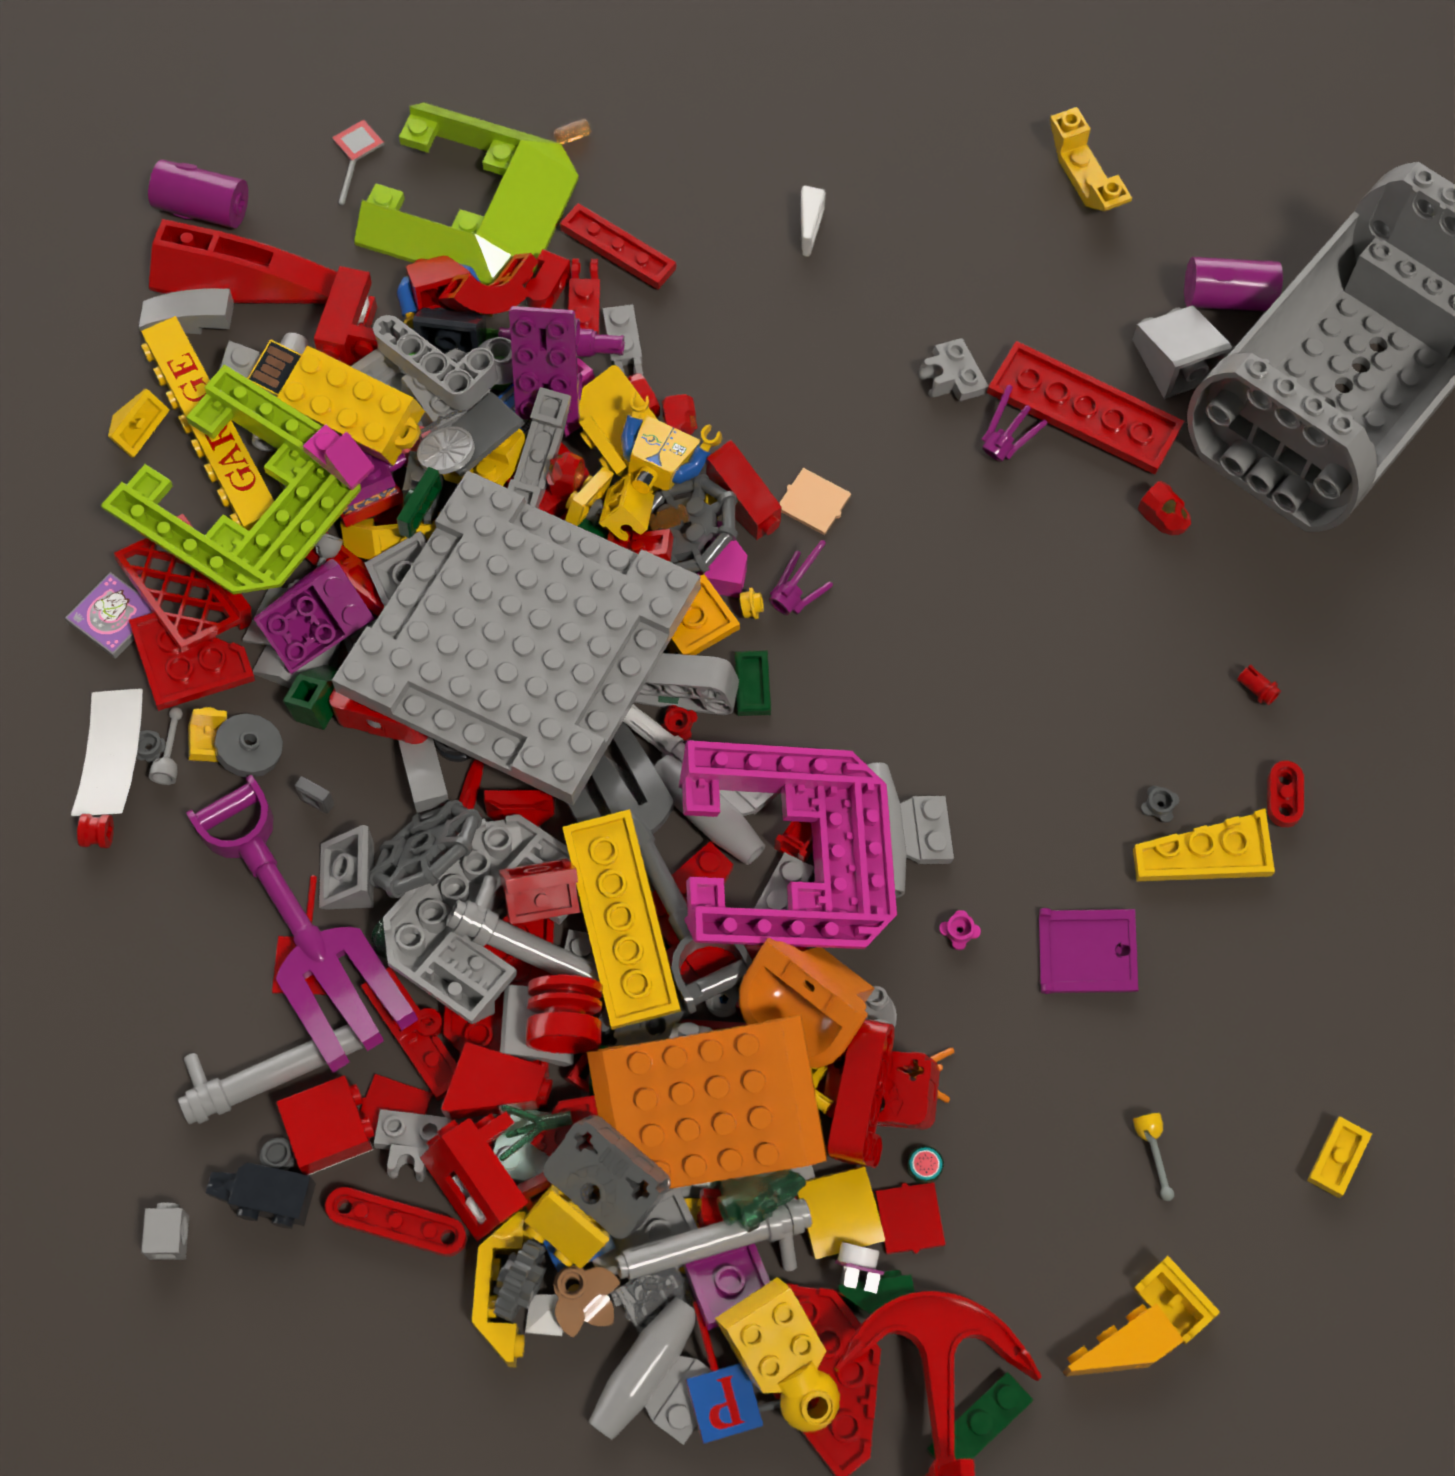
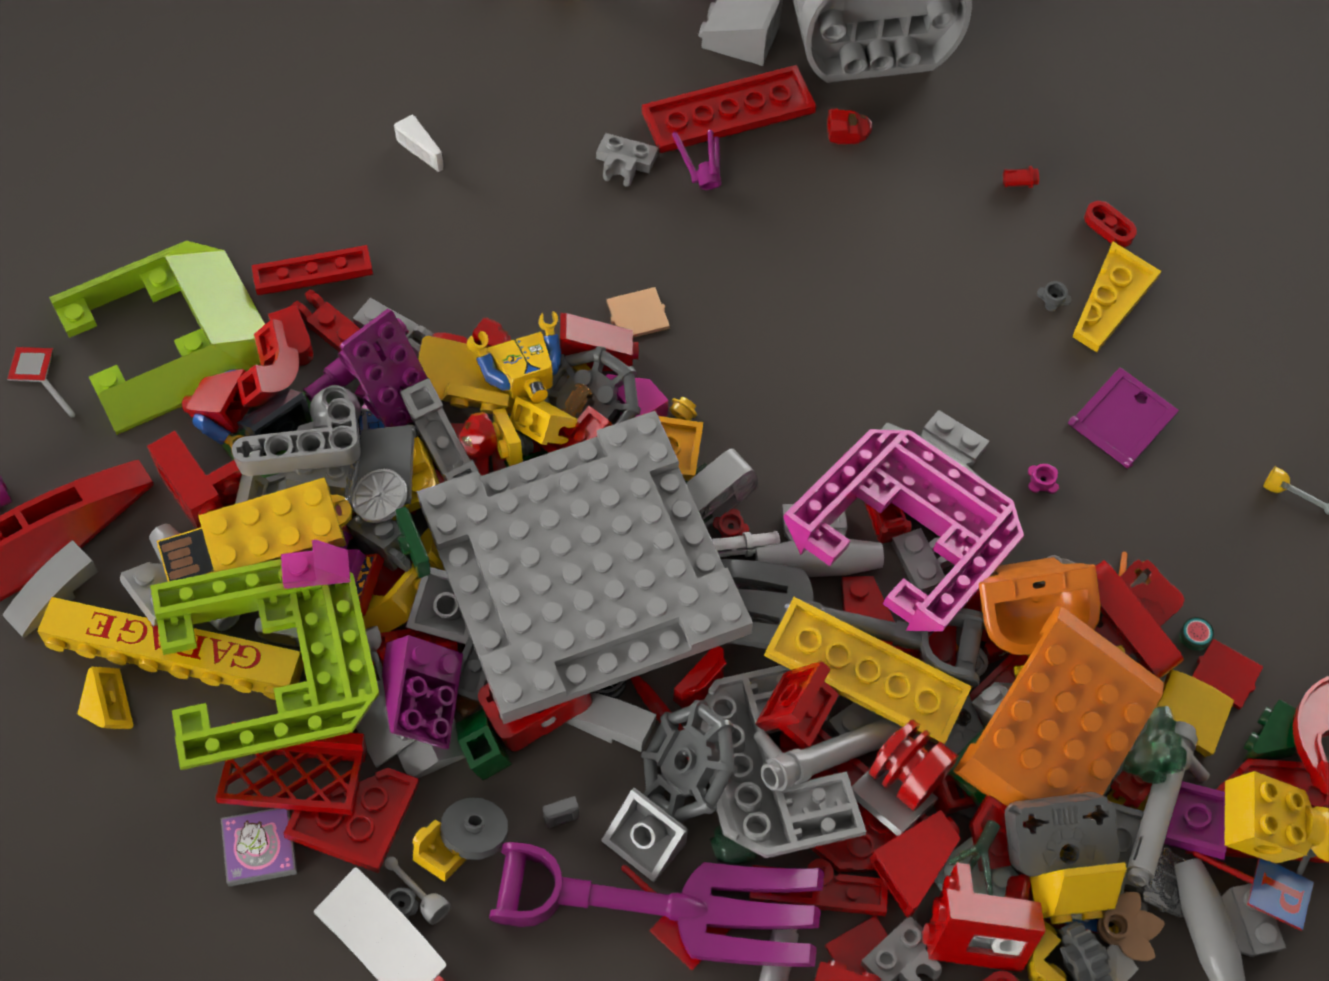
camera: 50 degrees left, 5 degrees down
(572, 131) = (185, 225): clear orange piece -> none
(754, 683) = (755, 458): dark green tile -> none
(786, 596) = (699, 384): magenta plant -> none
(858, 1258) = (1242, 723): piece -> none

